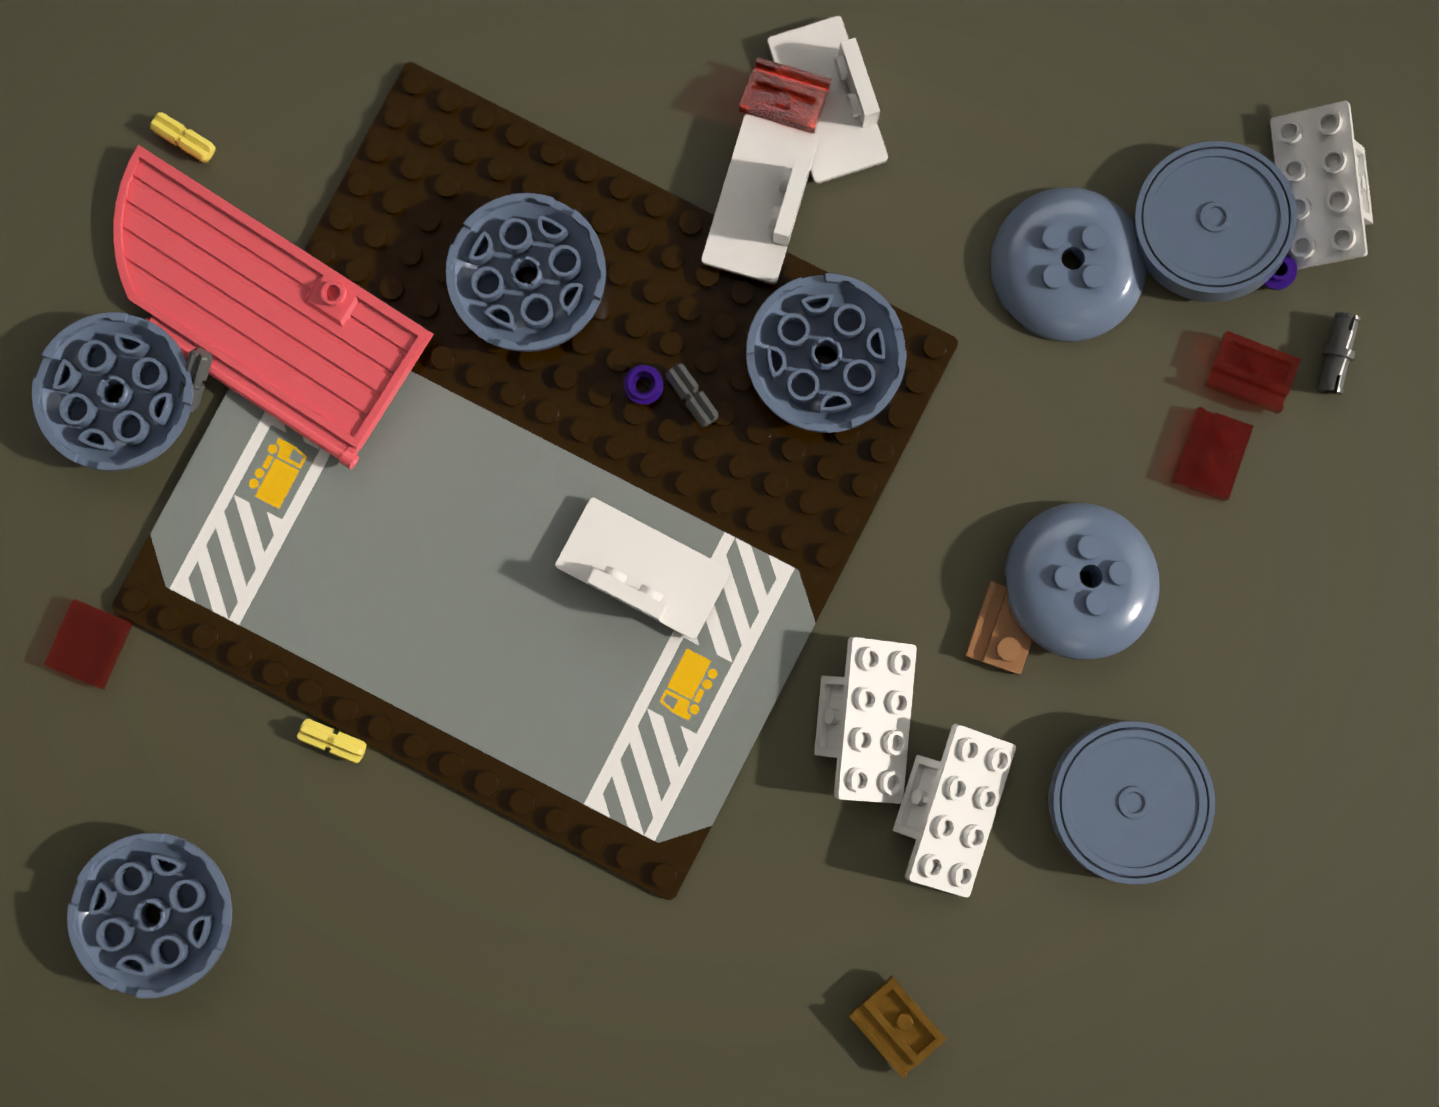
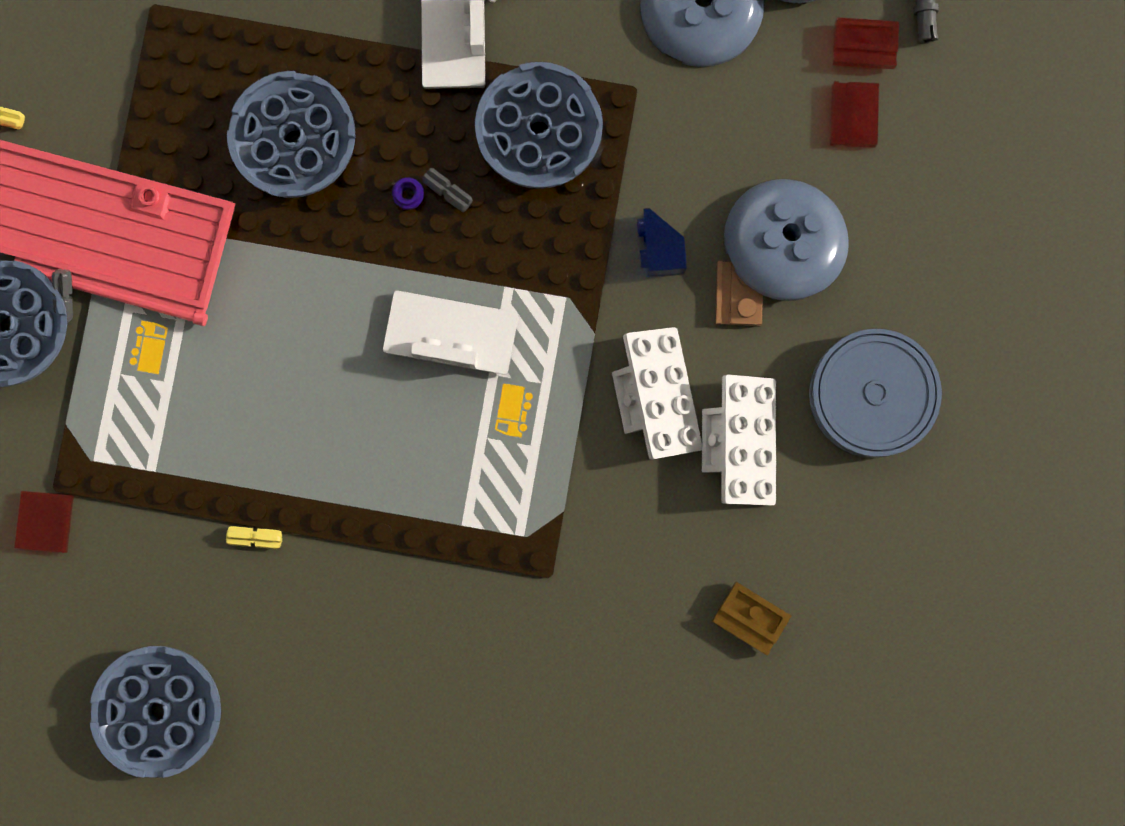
camera: 15 degrees left, 0 degrees up
(930, 542) = (663, 246): none -> clear blue slope

